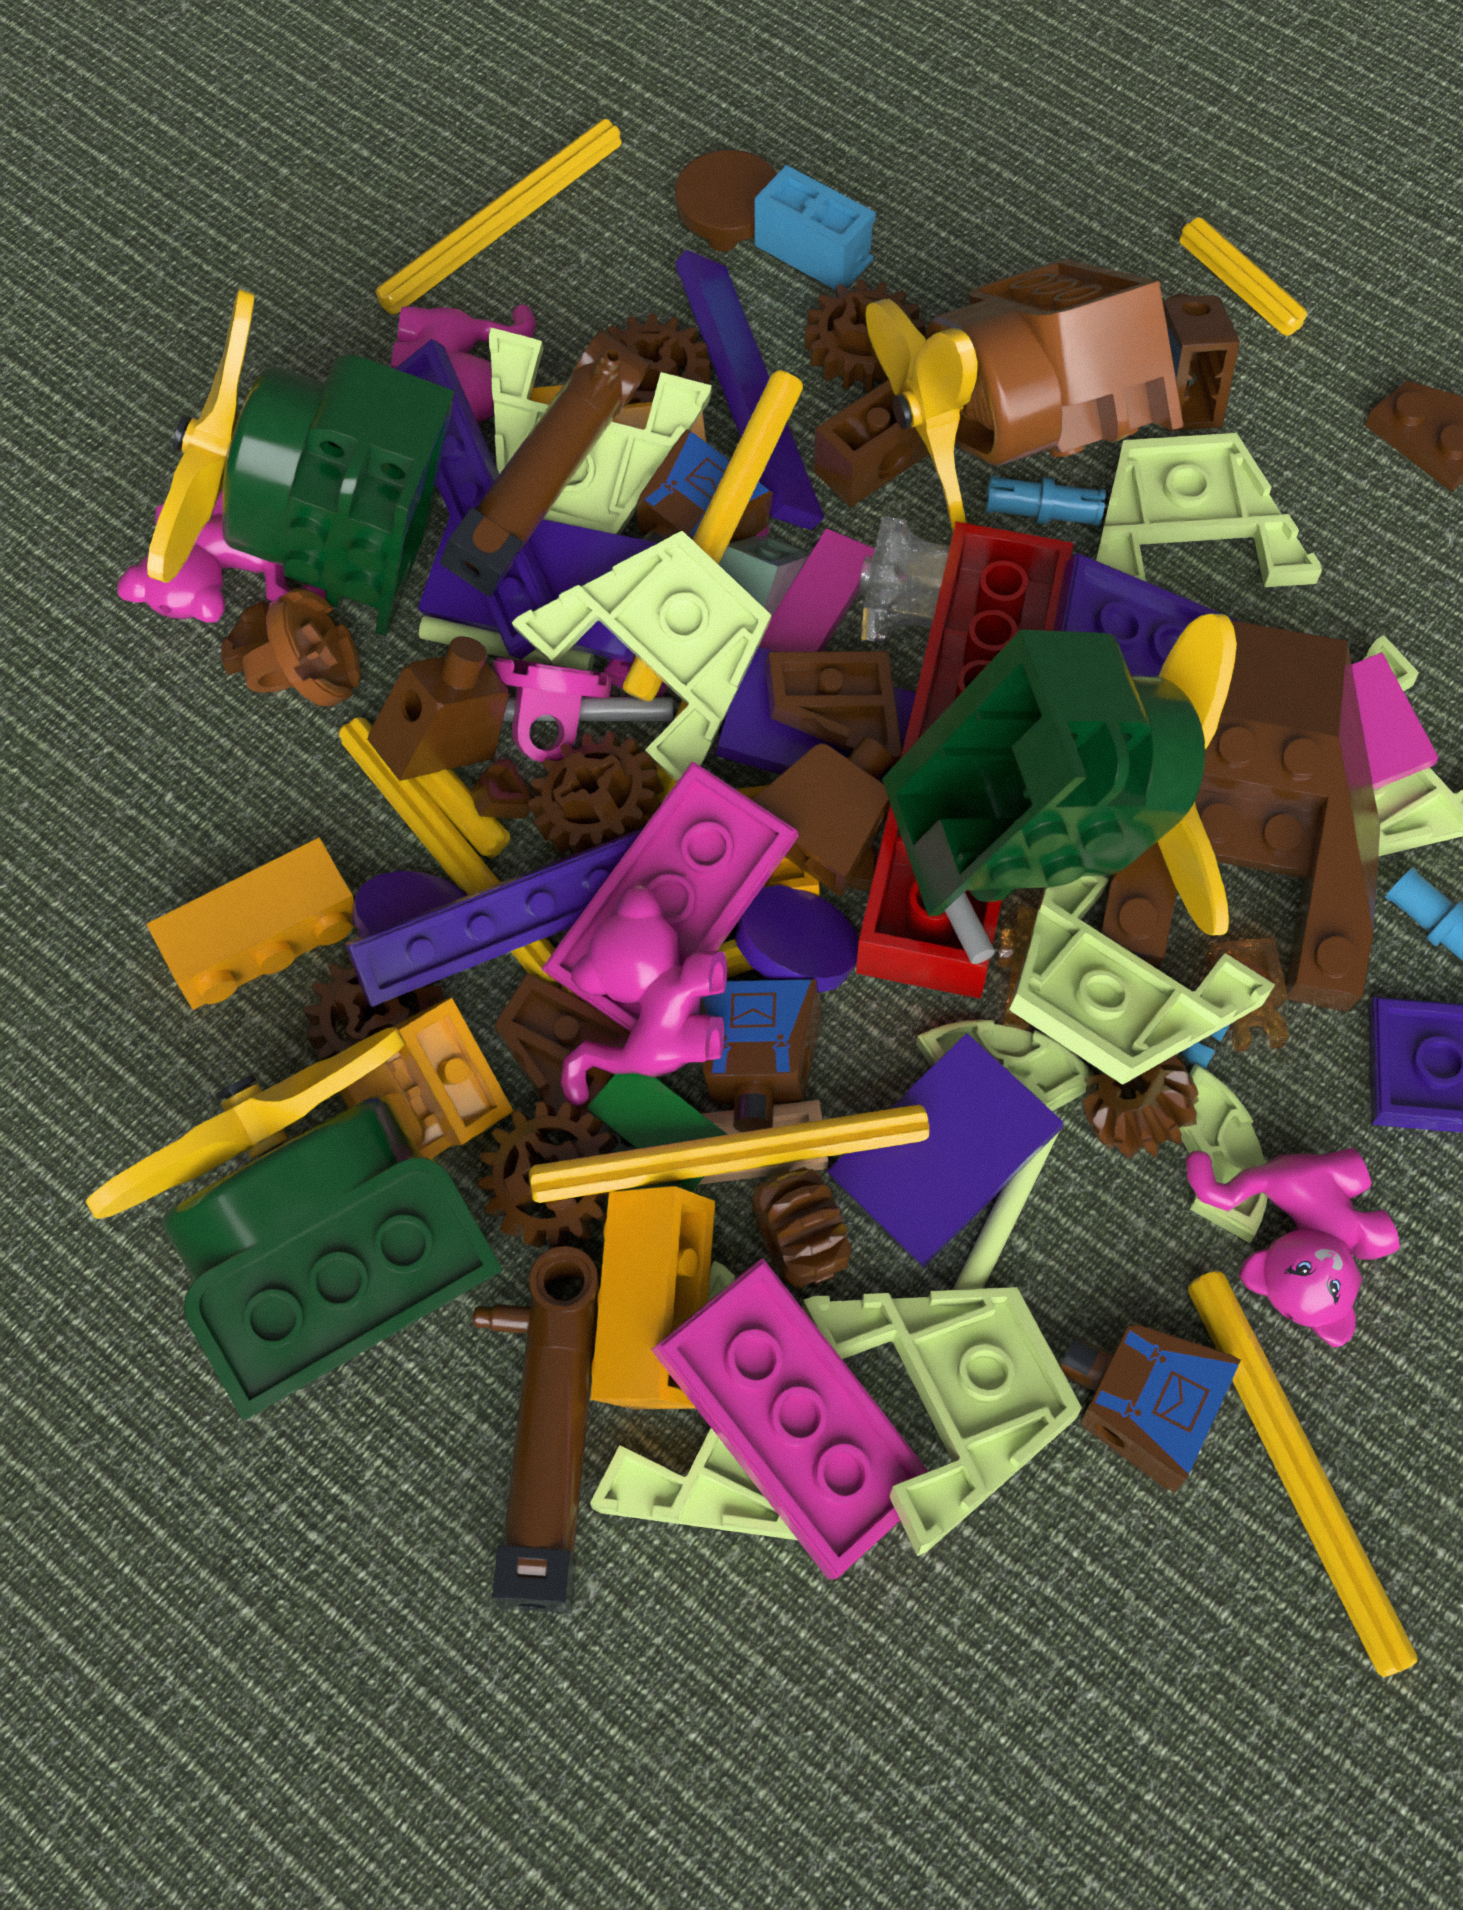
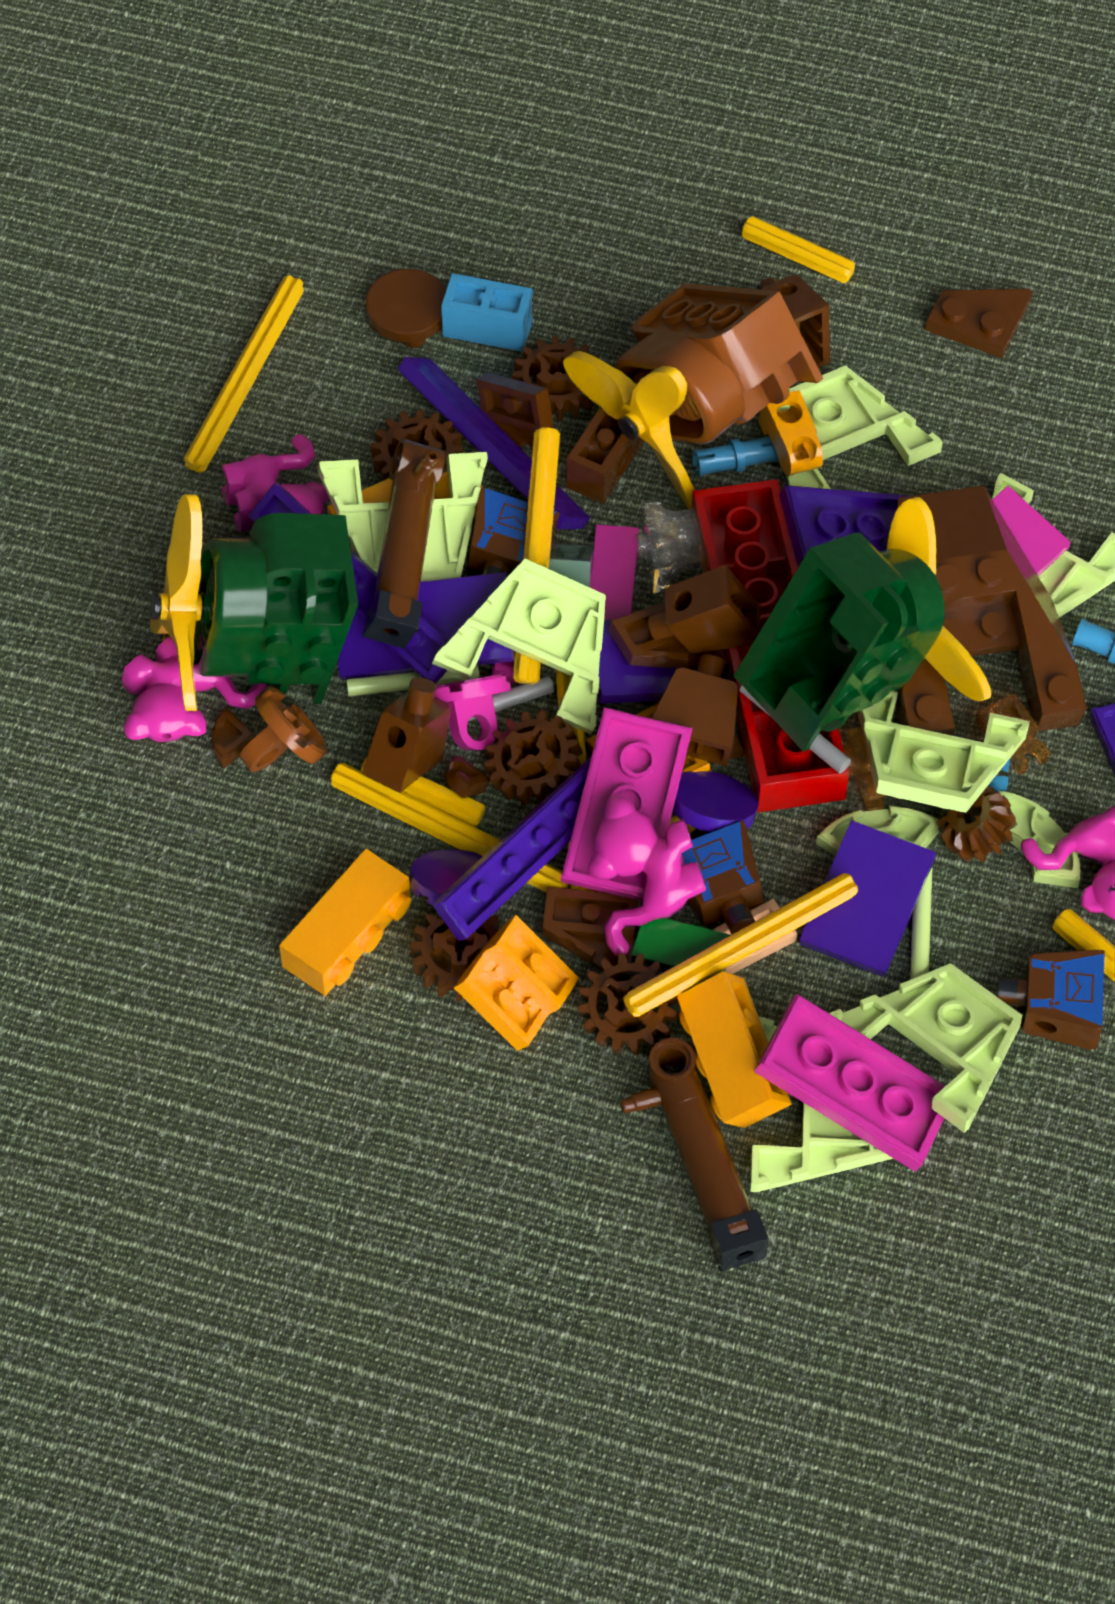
camera: 25 degrees left, 5 degrees down
(314, 1239) = (519, 1077): dark green brick -> none
(800, 348) = (515, 406): none -> reddish brown wing
(801, 1227) = (803, 970): reddish brown gear -> none
(887, 680) = (708, 613): none -> reddish brown torso
(1122, 492) = (792, 435): none -> light orange leg

